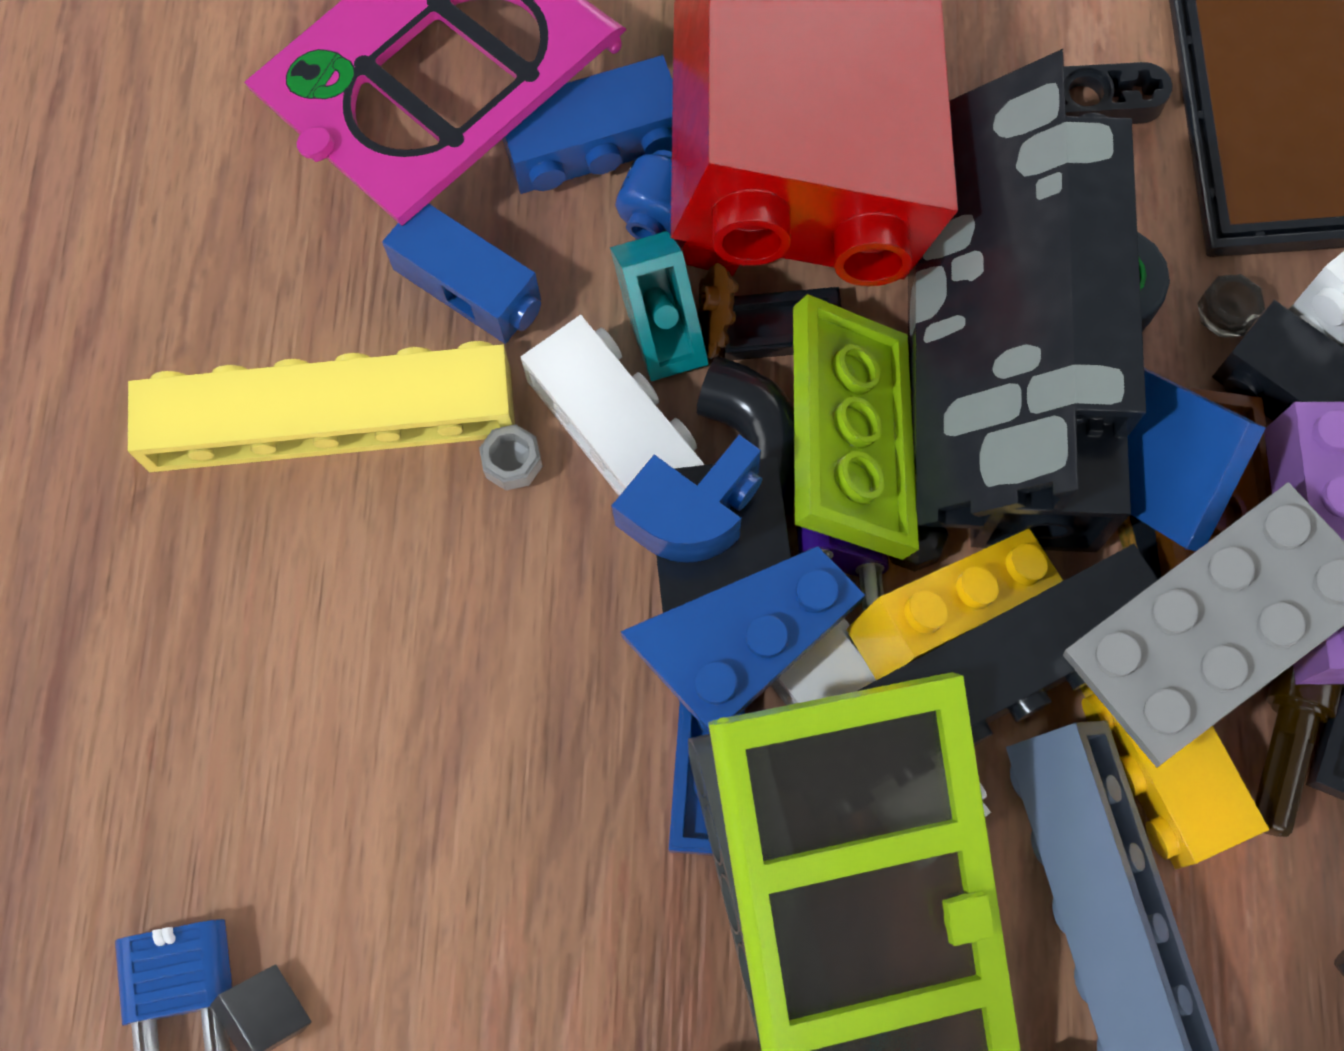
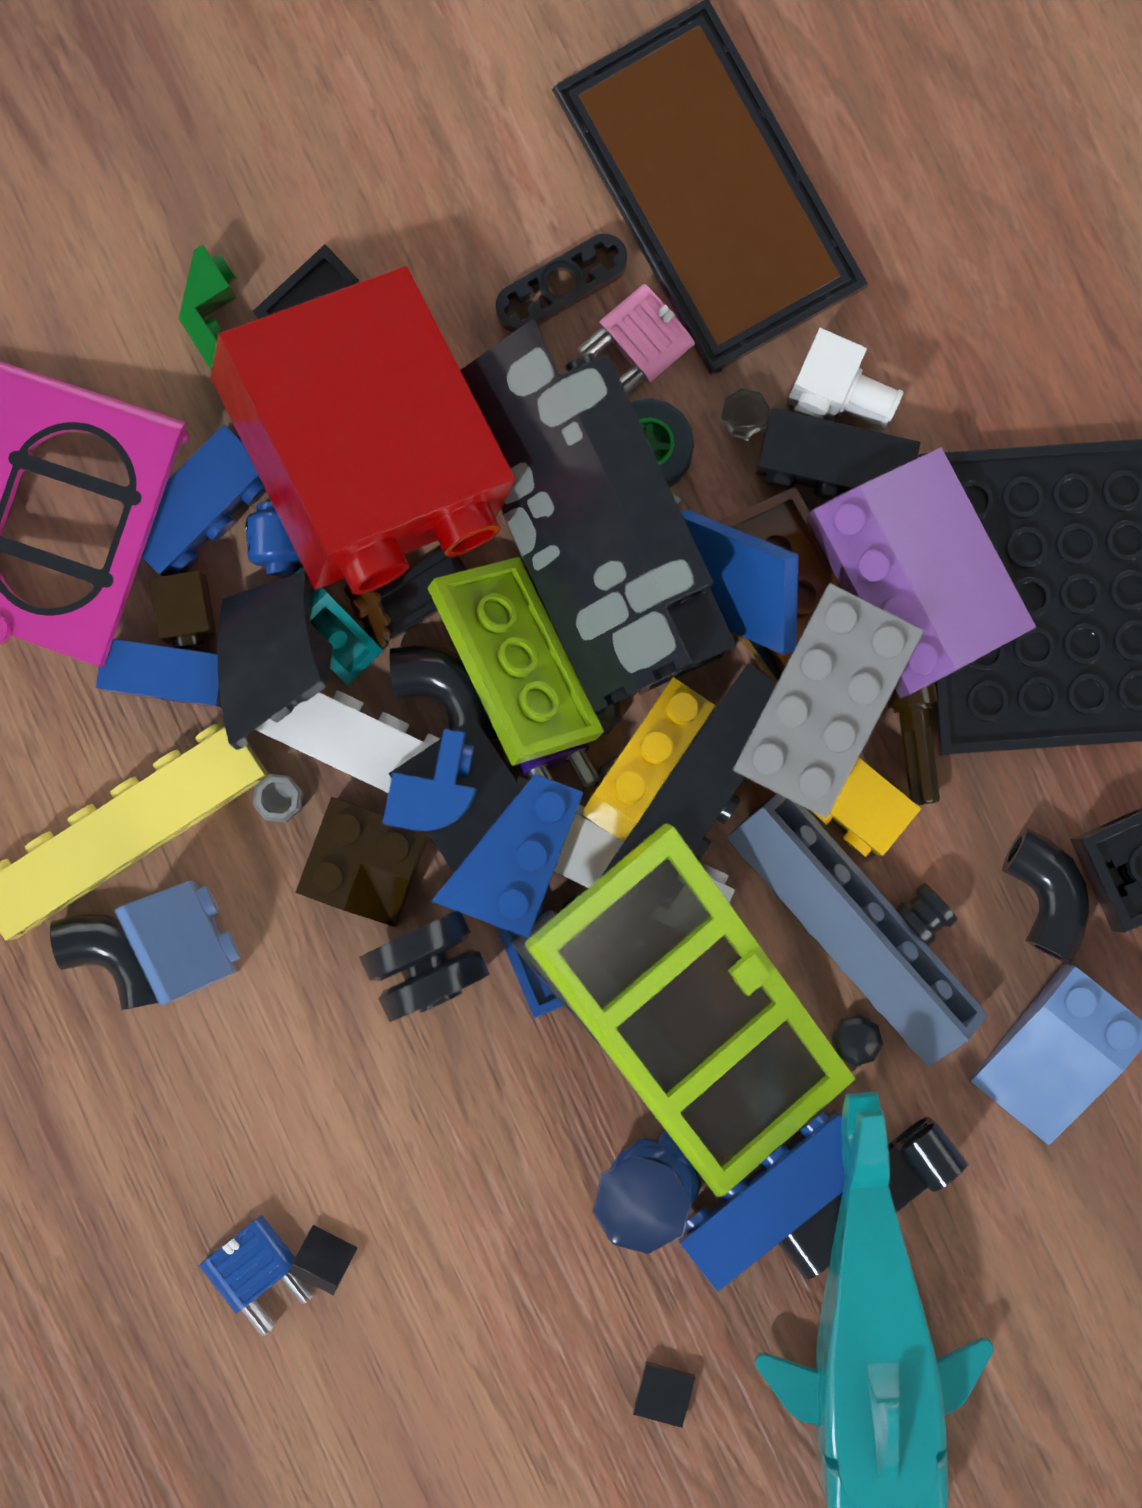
camera: 30 degrees left, 15 degrees up
(245, 530) = (104, 943): none -> black cylinder
(306, 539) = (179, 940): none -> medium blue slope
(521, 214) = (182, 609): none -> dark brown brick
(566, 566) = (362, 863): none -> dark brown slope
(572, 710) = (426, 970): none -> black wheel
(583, 290) = (269, 655): none -> black slope
(1166, 181) = (644, 335): none -> bright pink piece
(1222, 967) = (926, 913): none -> black wheel

